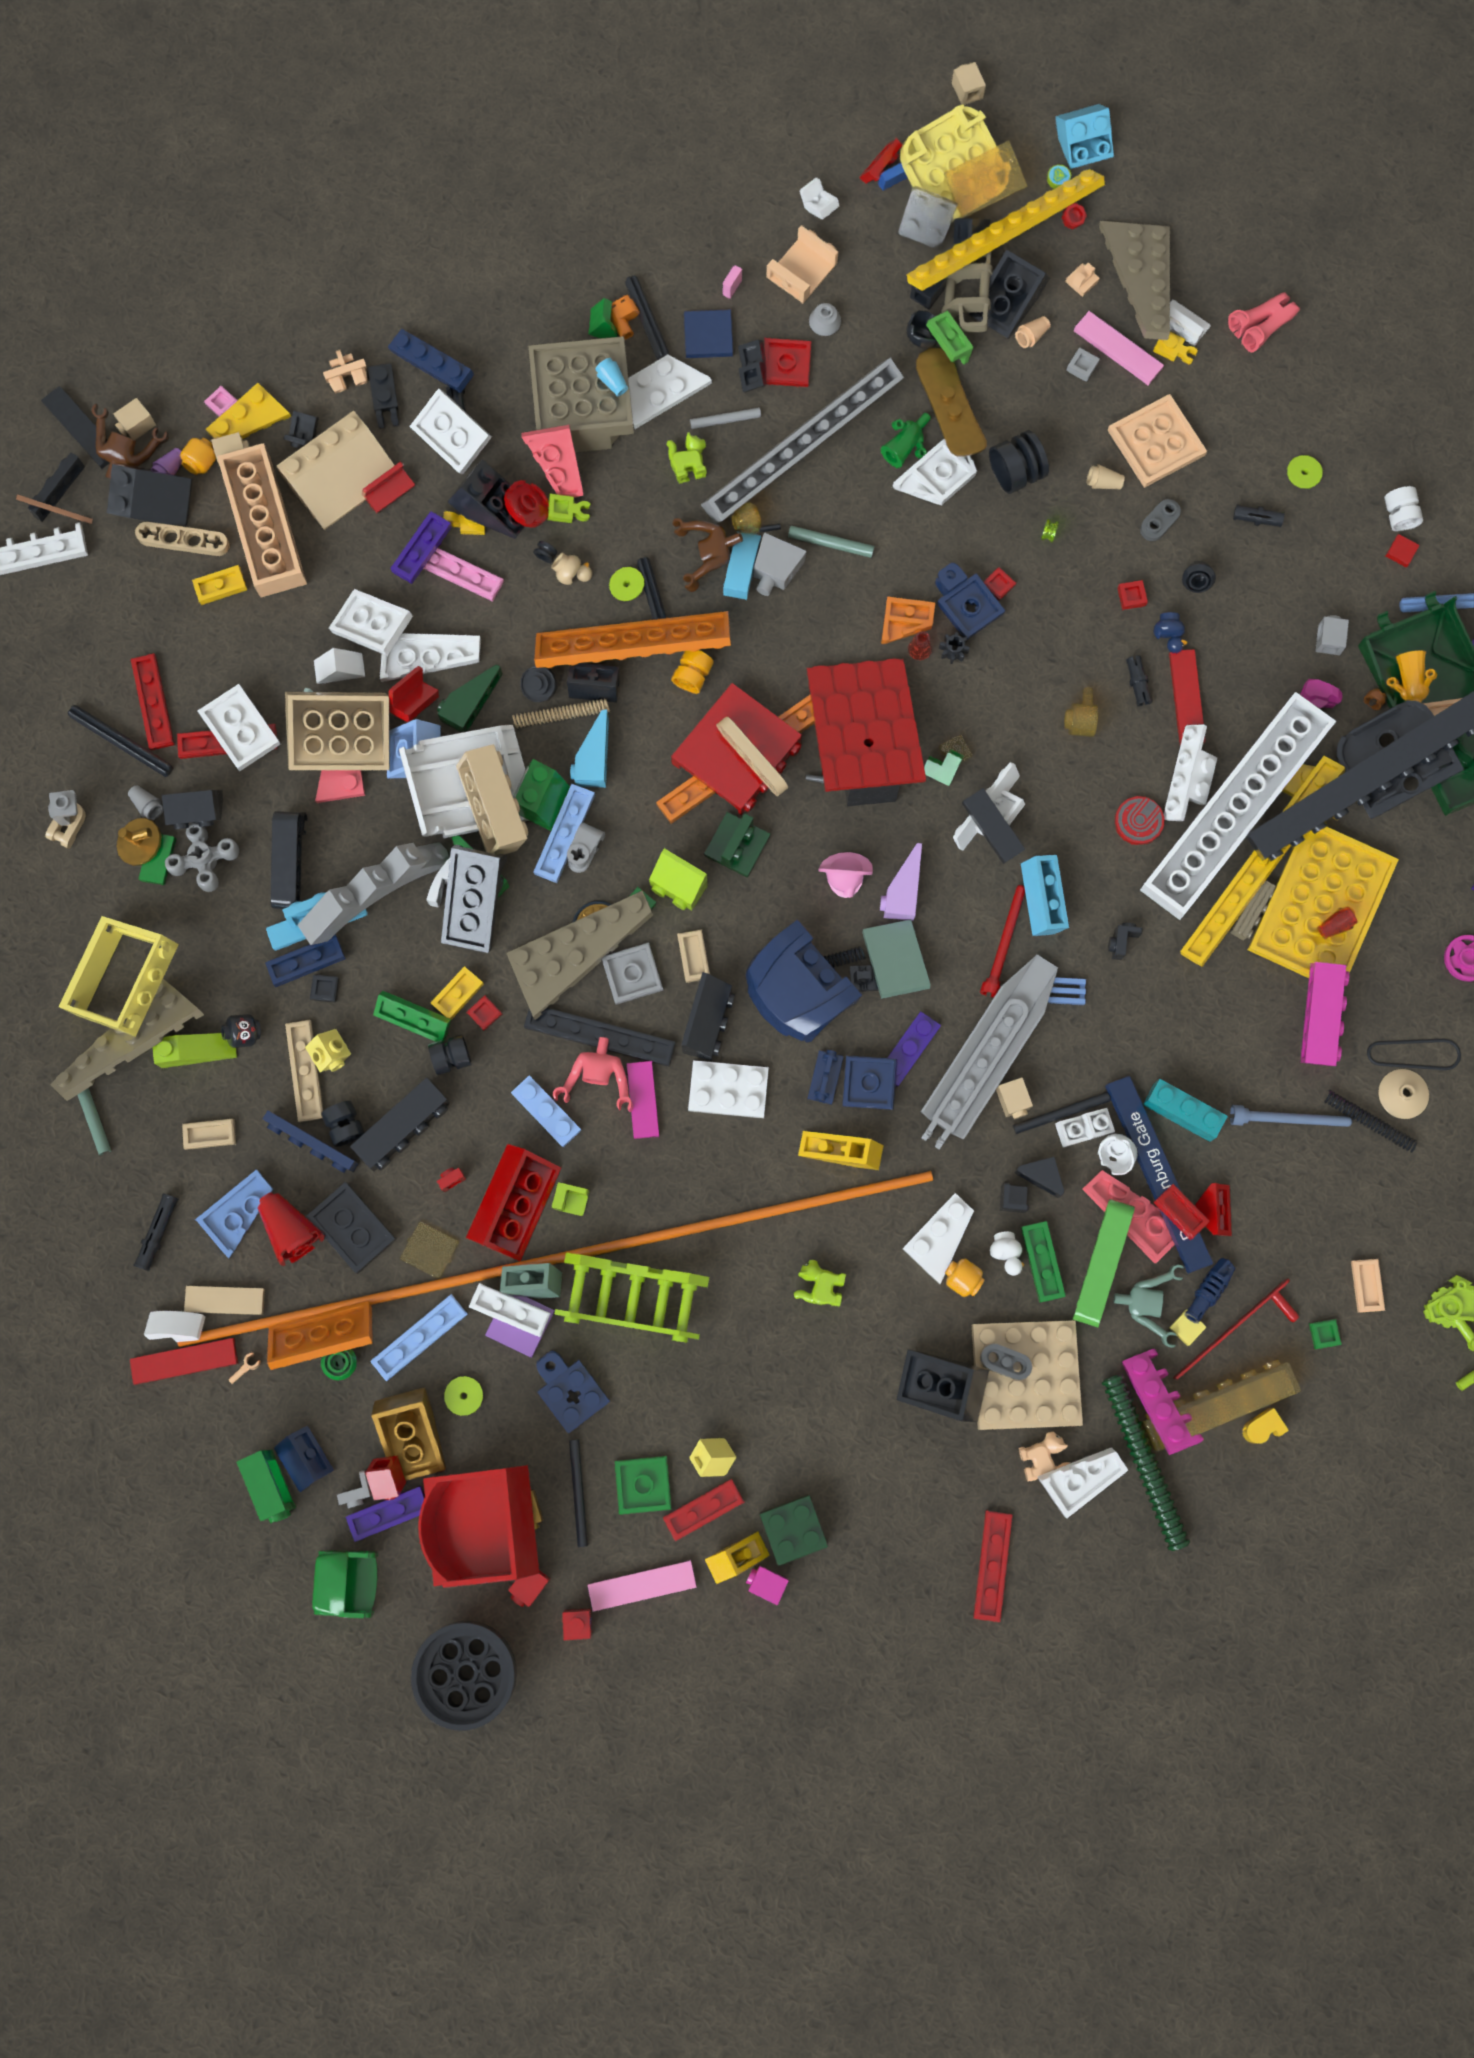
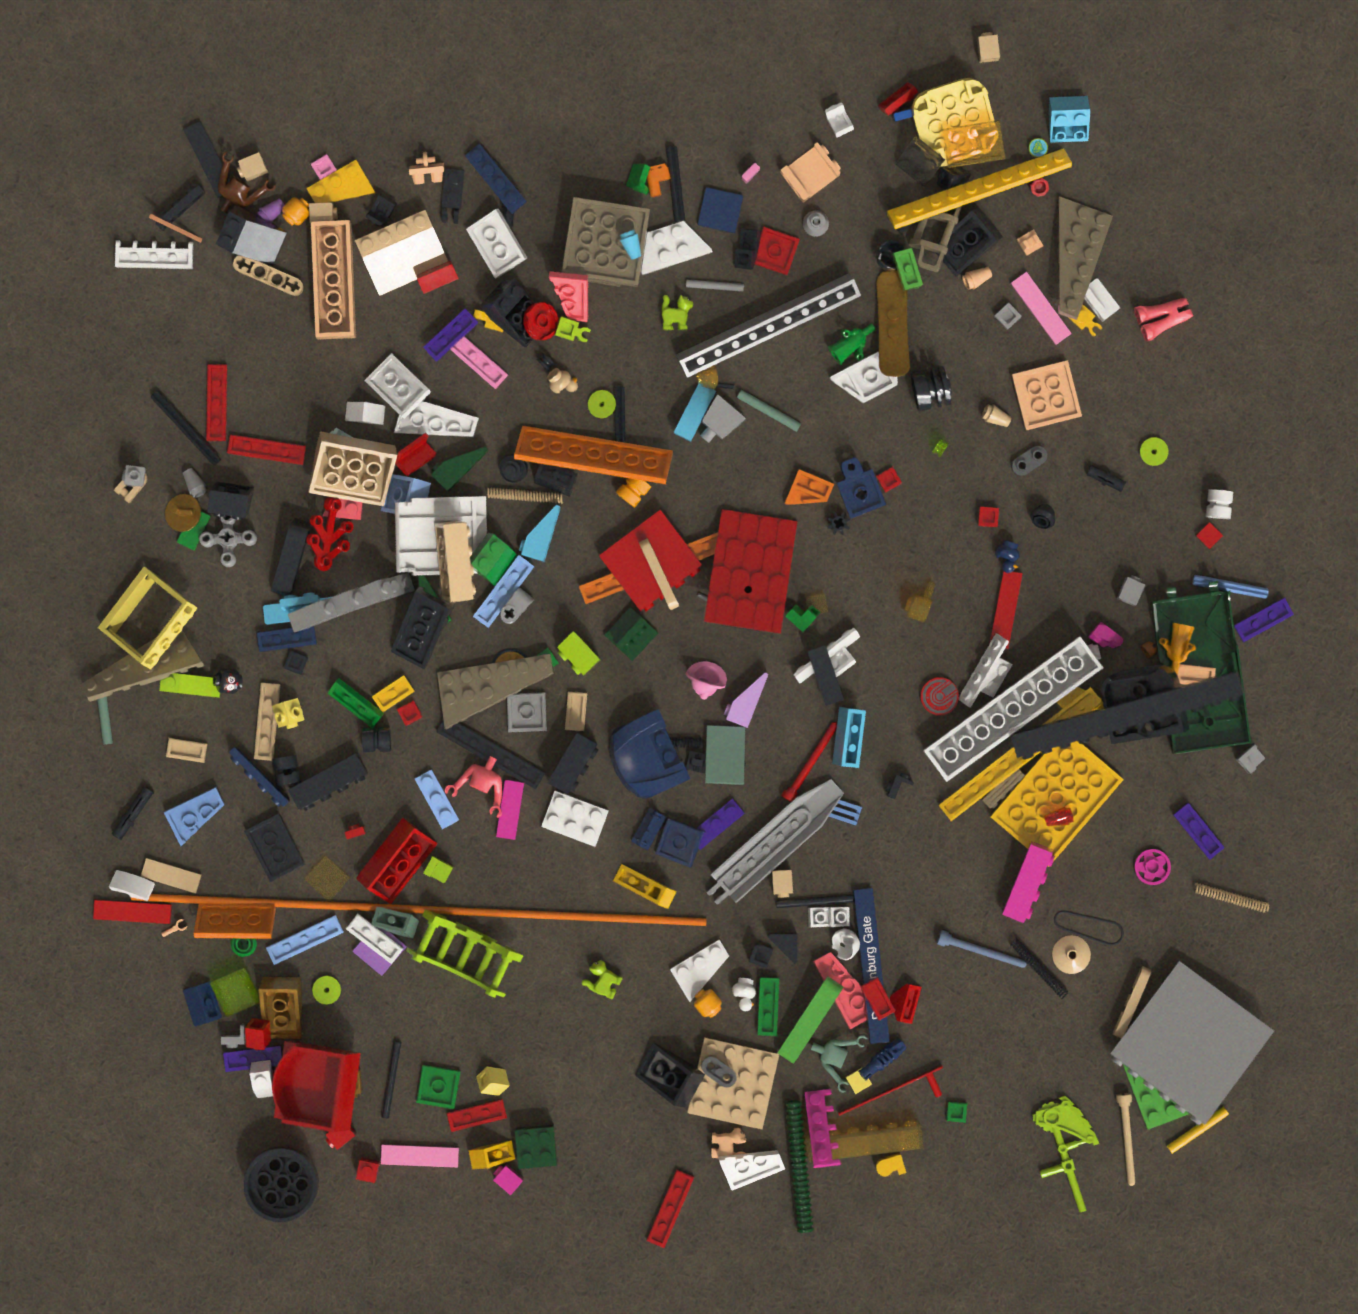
camera: 15 degrees right, 10 degrees up
(219, 585) = (288, 322): yellow plate -> none
(239, 727) = (278, 444): white plate -> none
(266, 1486) = (173, 1018): green window -> none
(287, 1228) = (228, 837): red cone -> none
(325, 818) = (328, 536): none -> red plant
(343, 1430) = (235, 992): none -> clear neon green slope
(345, 1583) = (212, 1099): green piece -> none
(404, 1537) = (262, 1078): none -> white slope
(436, 890) = (399, 607): white slope -> none
(563, 1379) = (402, 997): dark blue plate -> none
(712, 549) = (674, 394): reddish brown piece -> none
(920, 646) = (813, 521): clear red cone -> none
(1139, 680) = (972, 586): black pin -> none
(1185, 1110) = (904, 925): teal brick -> none
(1368, 1285) = (998, 1086): light nougat tile -> none

